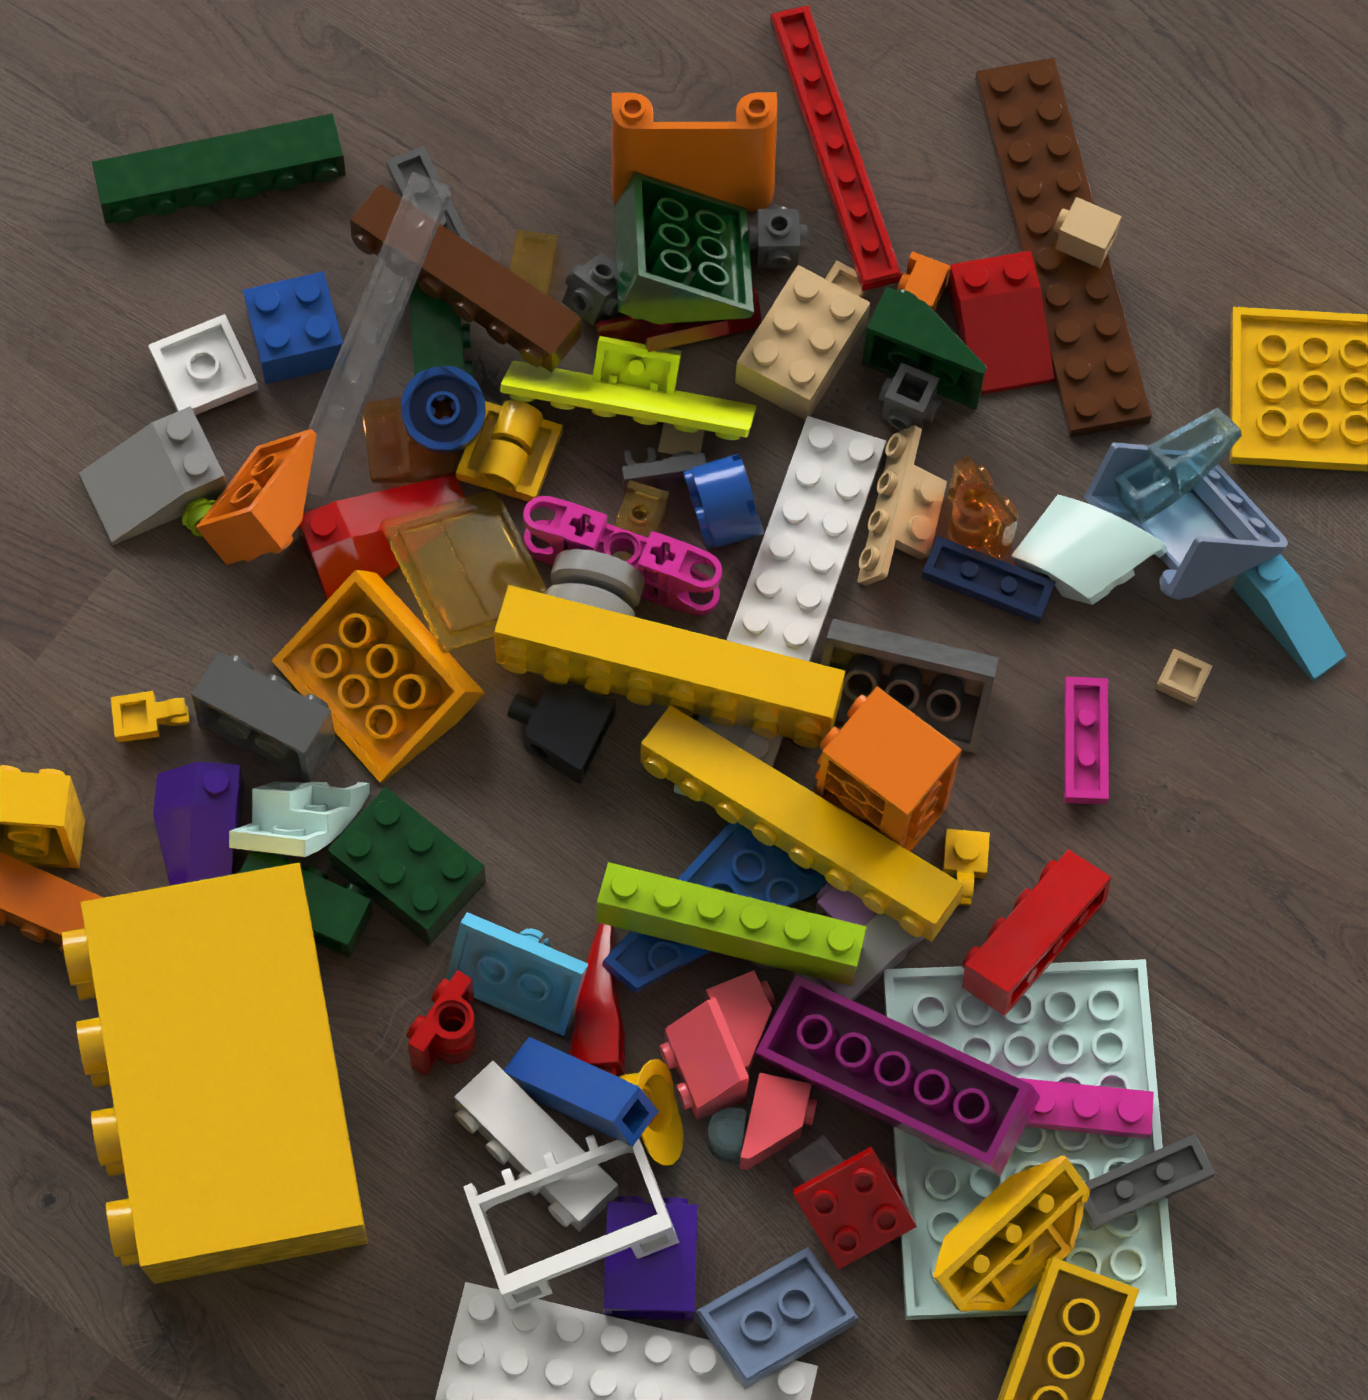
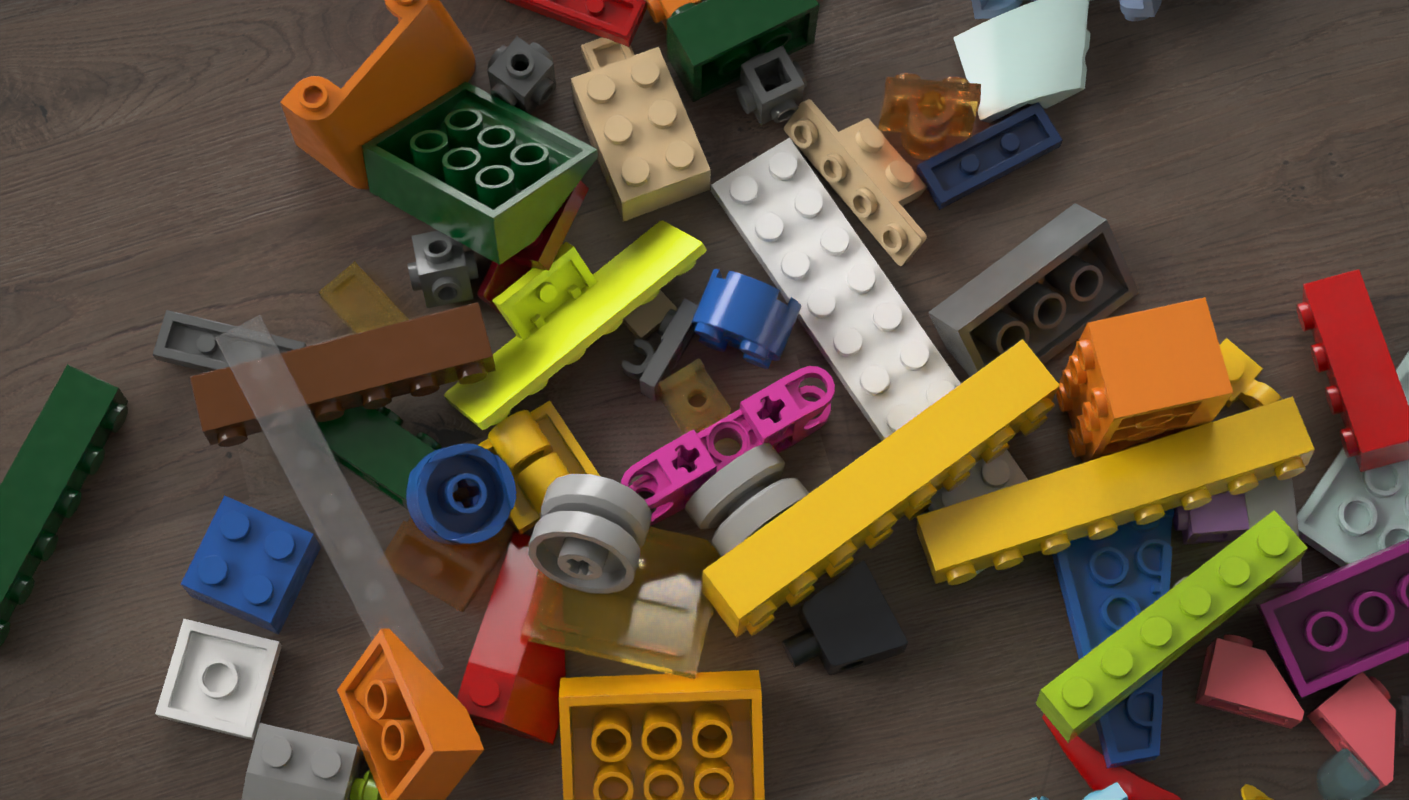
camera: 50 degrees left, 5 degrees up
(481, 506) = (590, 533): none -> light grey wheel
(705, 1061) = (1269, 746): coral slope -> none
(1086, 740) = (1201, 192): dark pink plate -> none
(1183, 677) = (1201, 69): tan tile -> none

